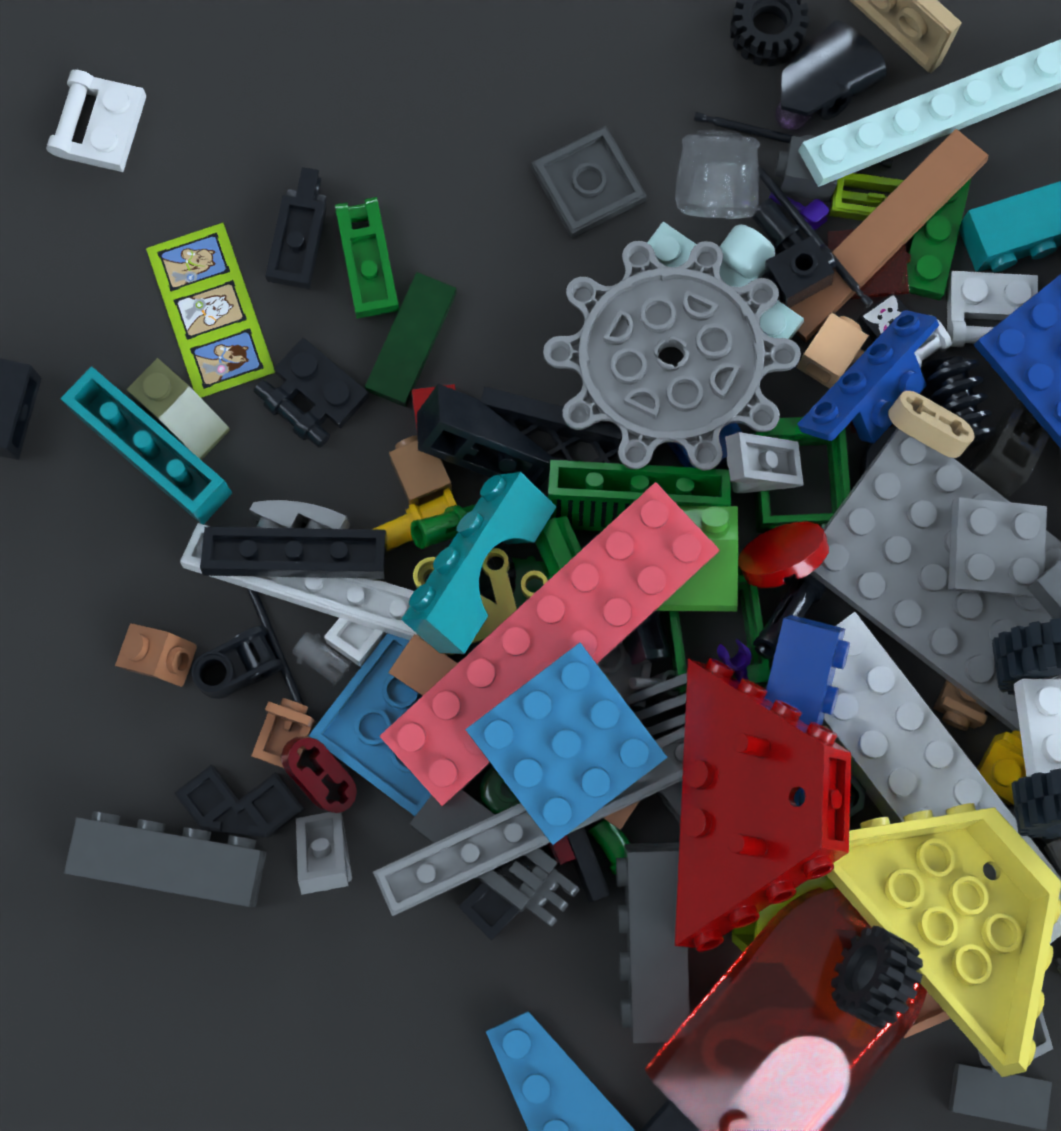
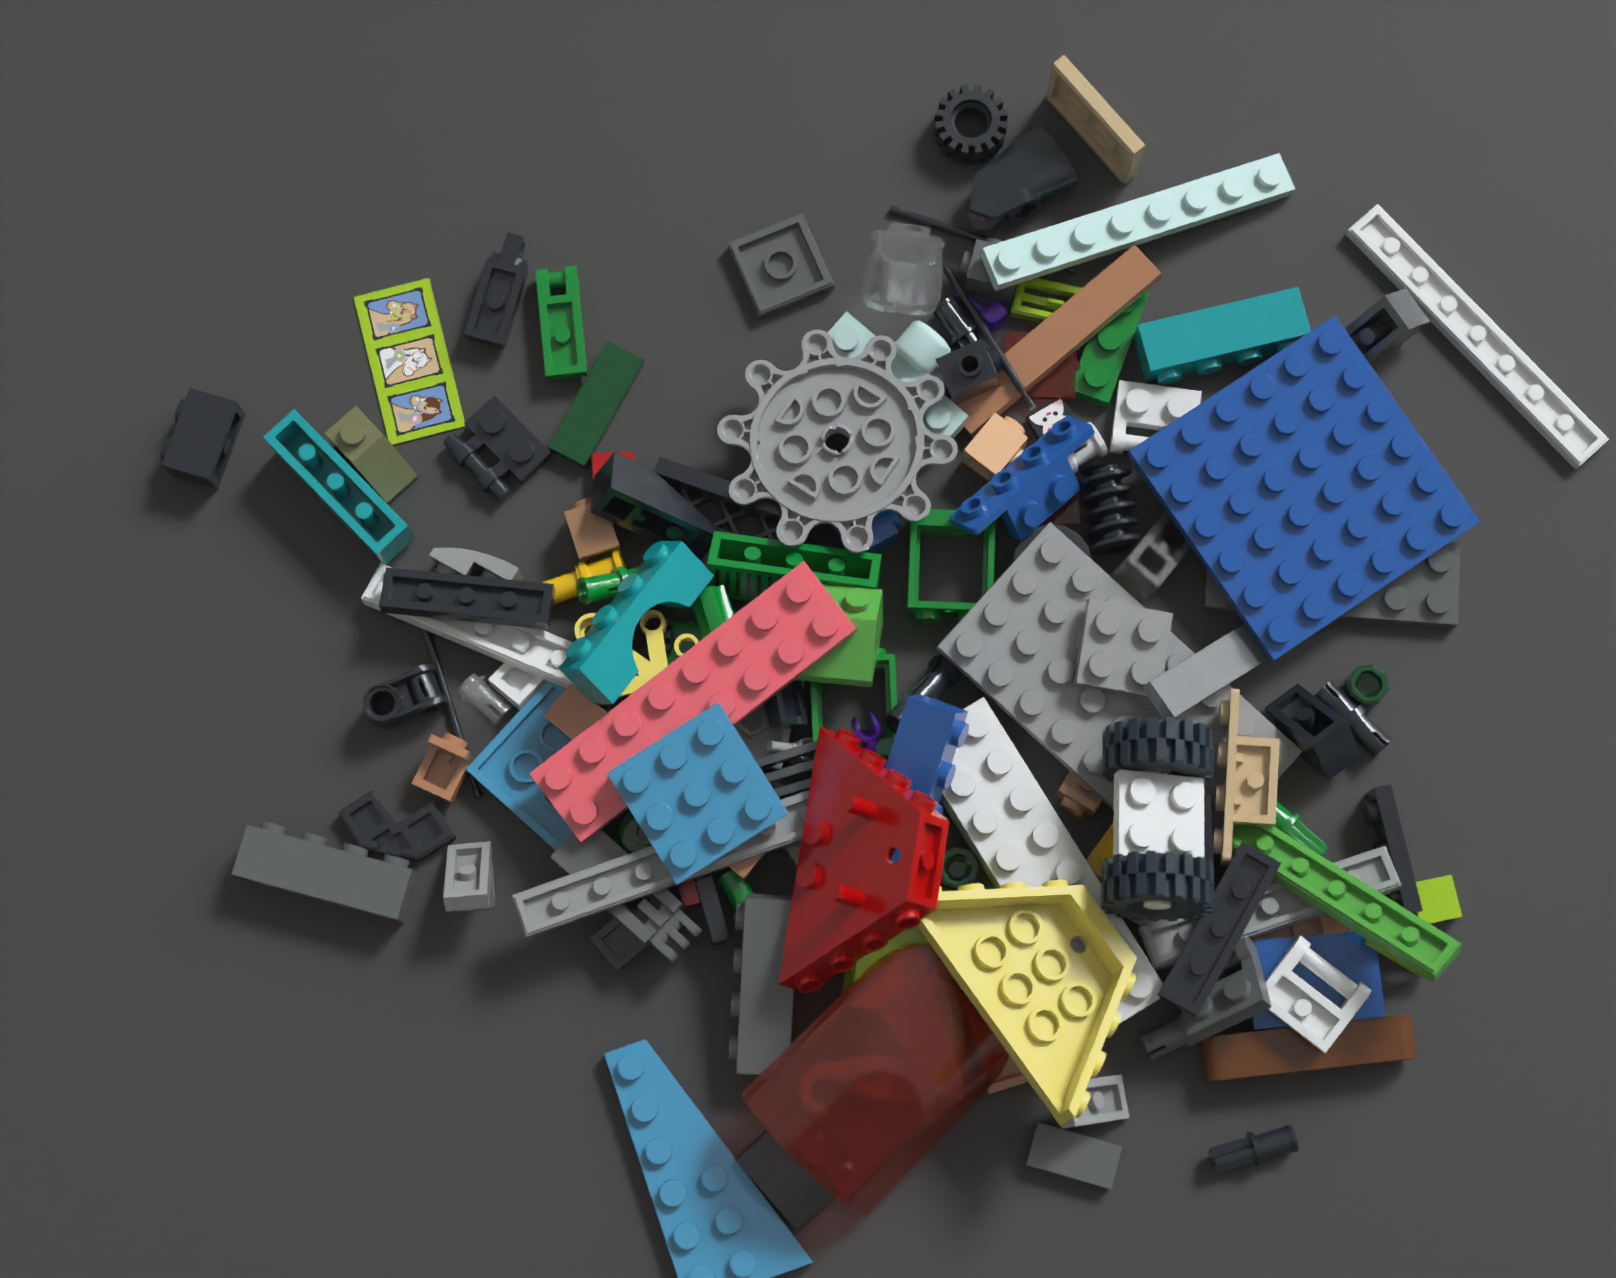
camera: 10 degrees right, 0 degrees up
(110, 123) = (329, 176): white plate -> none
(156, 654) = (332, 682): nougat bracket -> none
(327, 768) = (479, 798): dark red beam -> none
(762, 463) = (910, 550): light grey slope -> none
(782, 552) = (920, 635): red tile -> none
(877, 977) = (950, 1022): black tyre -> none
(931, 424) = (1073, 527): tan beam -> none

